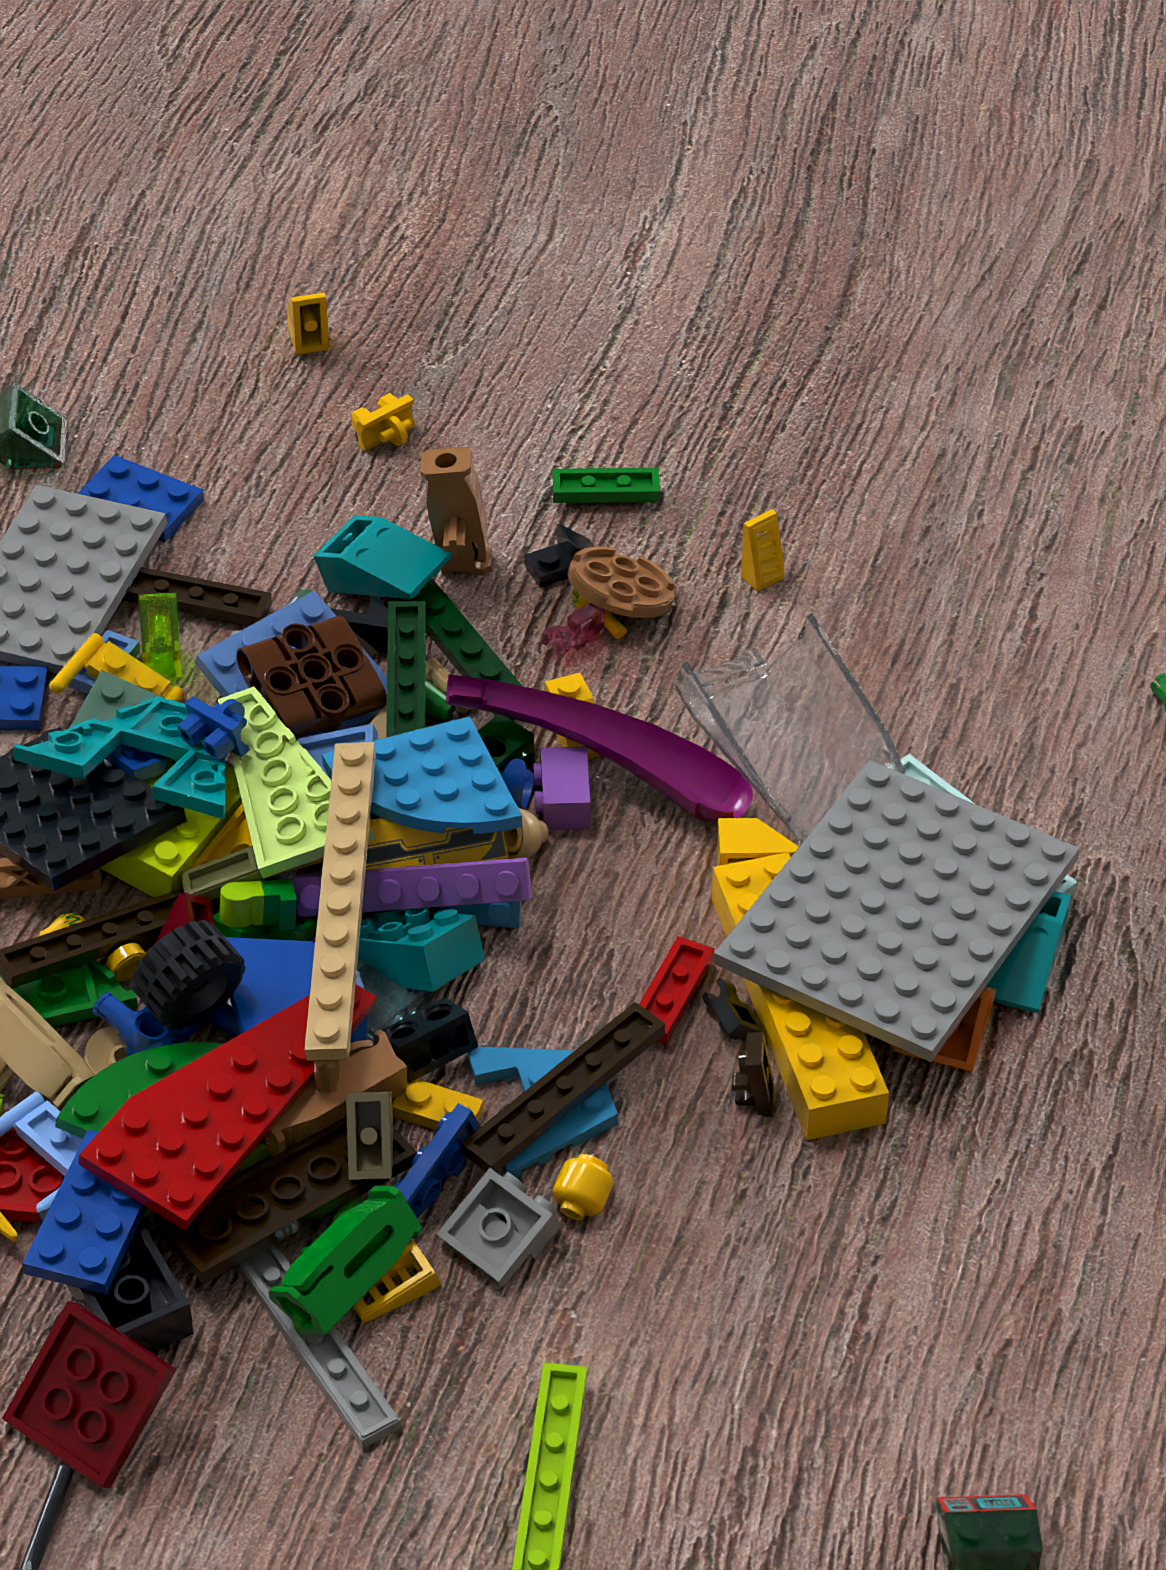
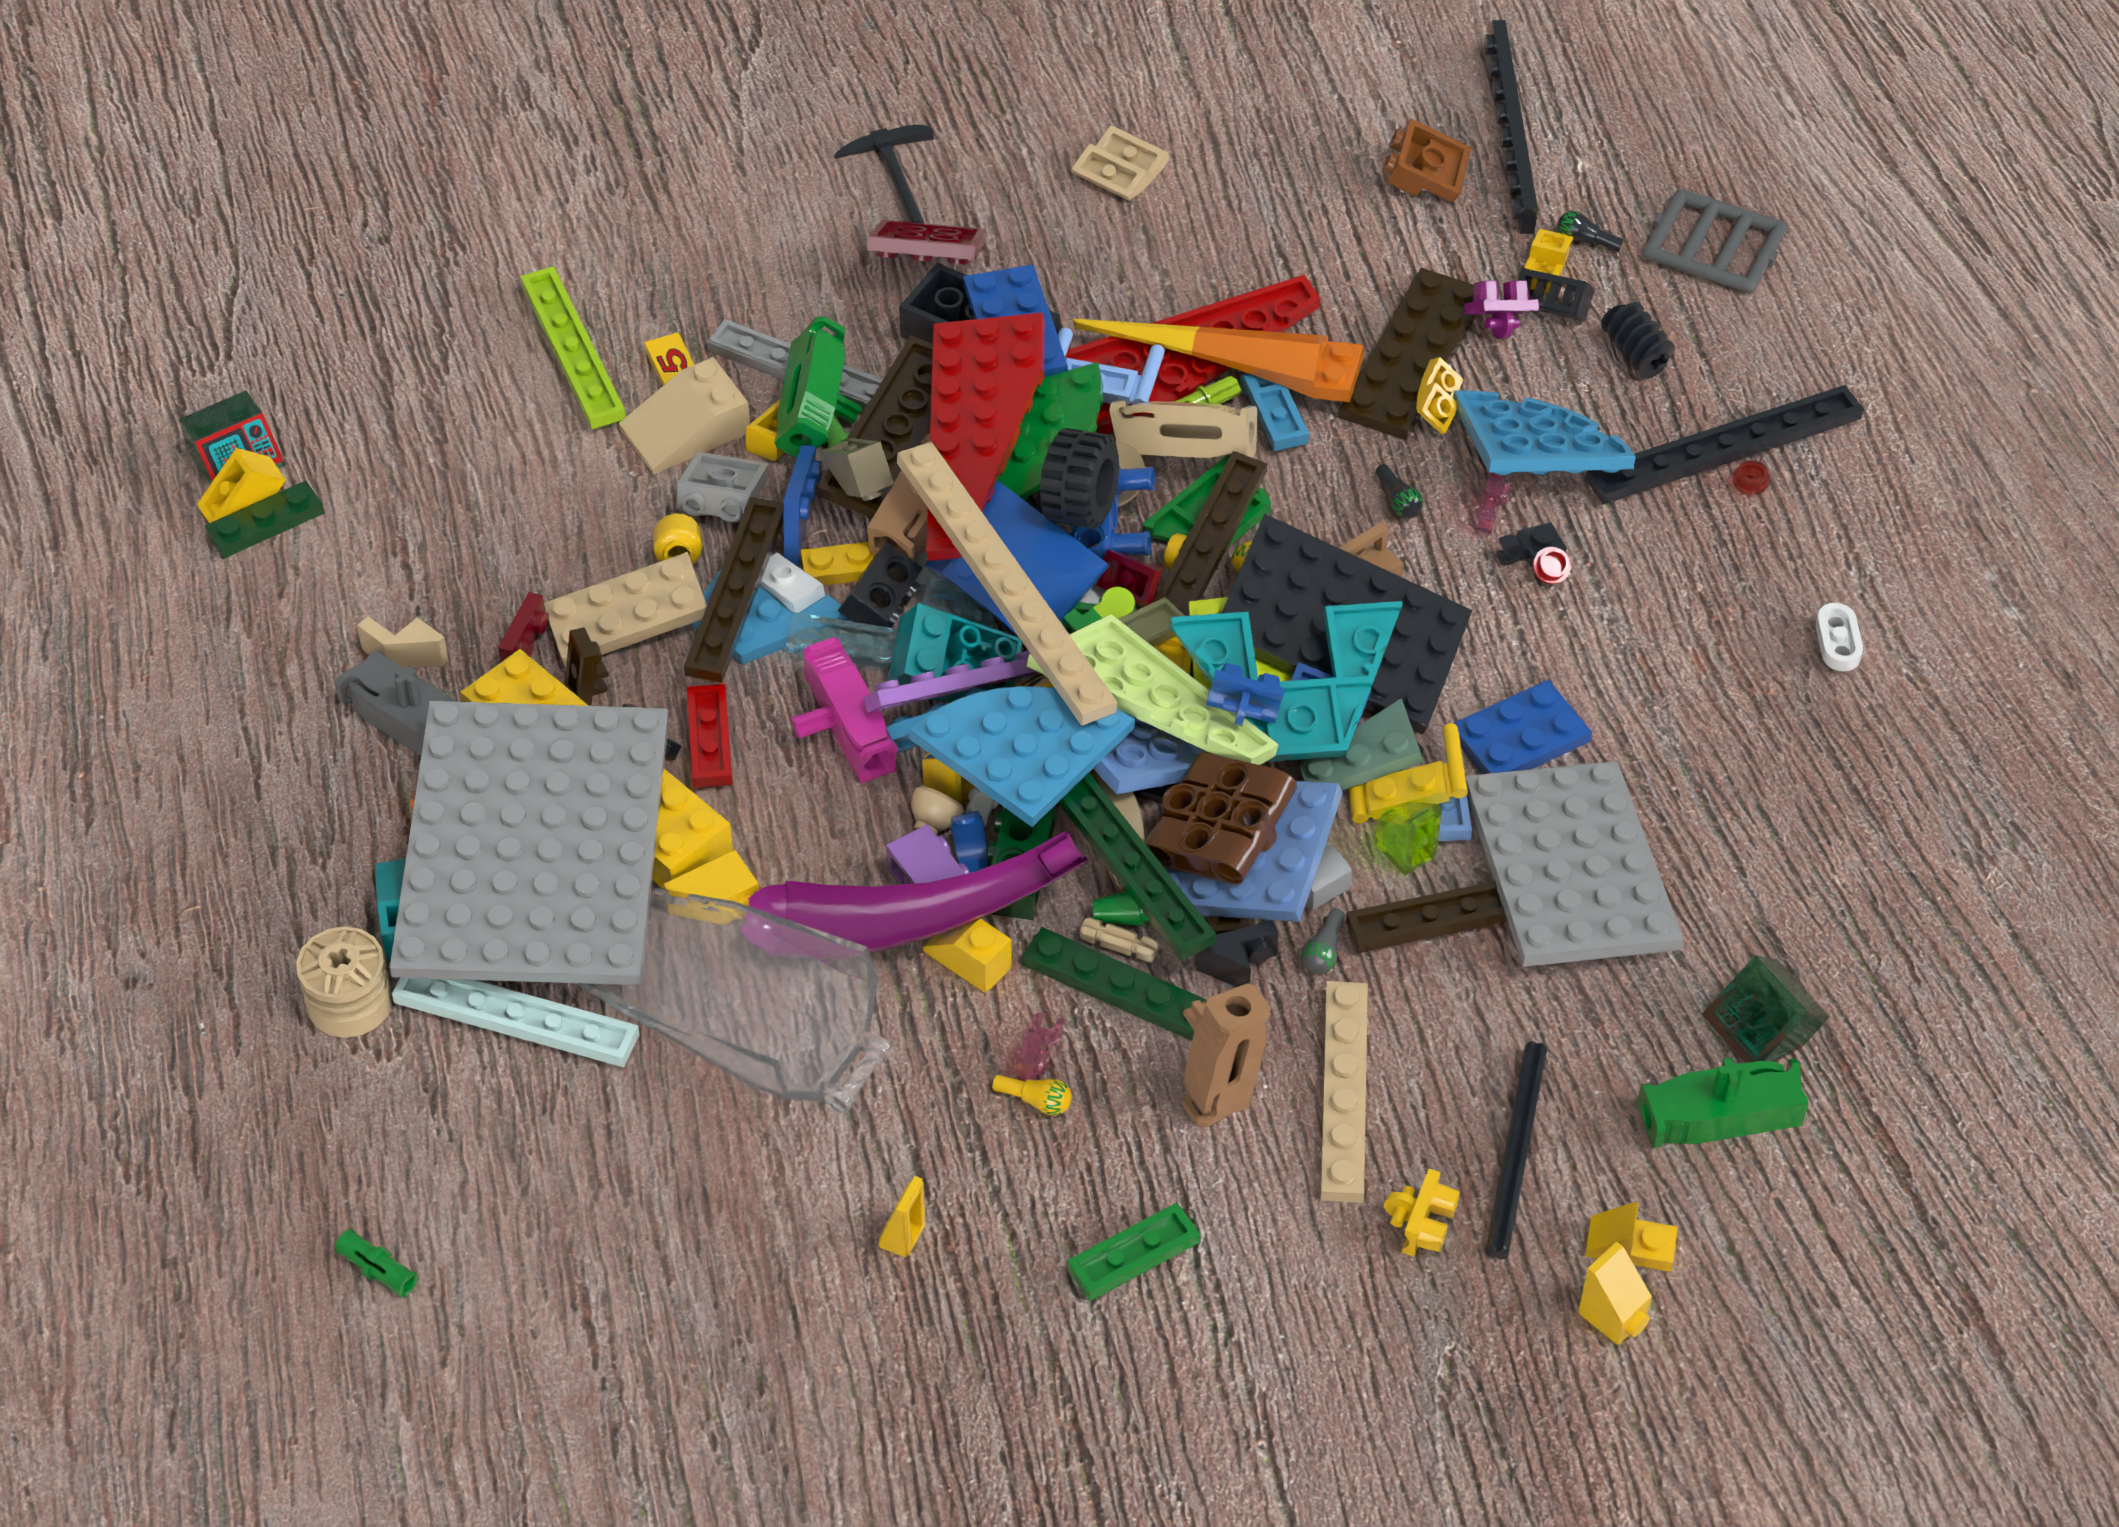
camera: 150 degrees right, 5 degrees up
(114, 395) = (1723, 1103): none -> green piece
(147, 489) = (1590, 1007): blue plate -> none
(258, 360) = (1645, 1242): none -> yellow slope
(279, 439) = (1516, 1150): none -> black axle
(378, 559) = (1301, 1001): teal slope -> none
(388, 501) = (1344, 1092): none -> tan plate
(452, 1414) = (668, 356): none -> yellow tile
(483, 1328) = (687, 416): none -> tan slope
(496, 1014) = (862, 642): none -> clear light blue plate
(500, 1084) = (790, 584): none -> white plate
(538, 943) = (842, 708): none -> dark pink piece
(552, 563) = (1111, 1142): black slope -> none
(621, 582) = (1025, 1116): medium nougat tile -> none
(675, 1140) = (630, 606): none -> tan plate
(790, 1161) = (525, 627): none -> dark red plate
(906, 1197) = (413, 646): none -> tan slope
(940, 1133) = (390, 698): none -> dark grey piece
(988, 1432) = (264, 519): none -> dark green plate
(1000, 1461) = (240, 483): none -> yellow slope
(1116, 896) = (344, 982): none -> tan wheel

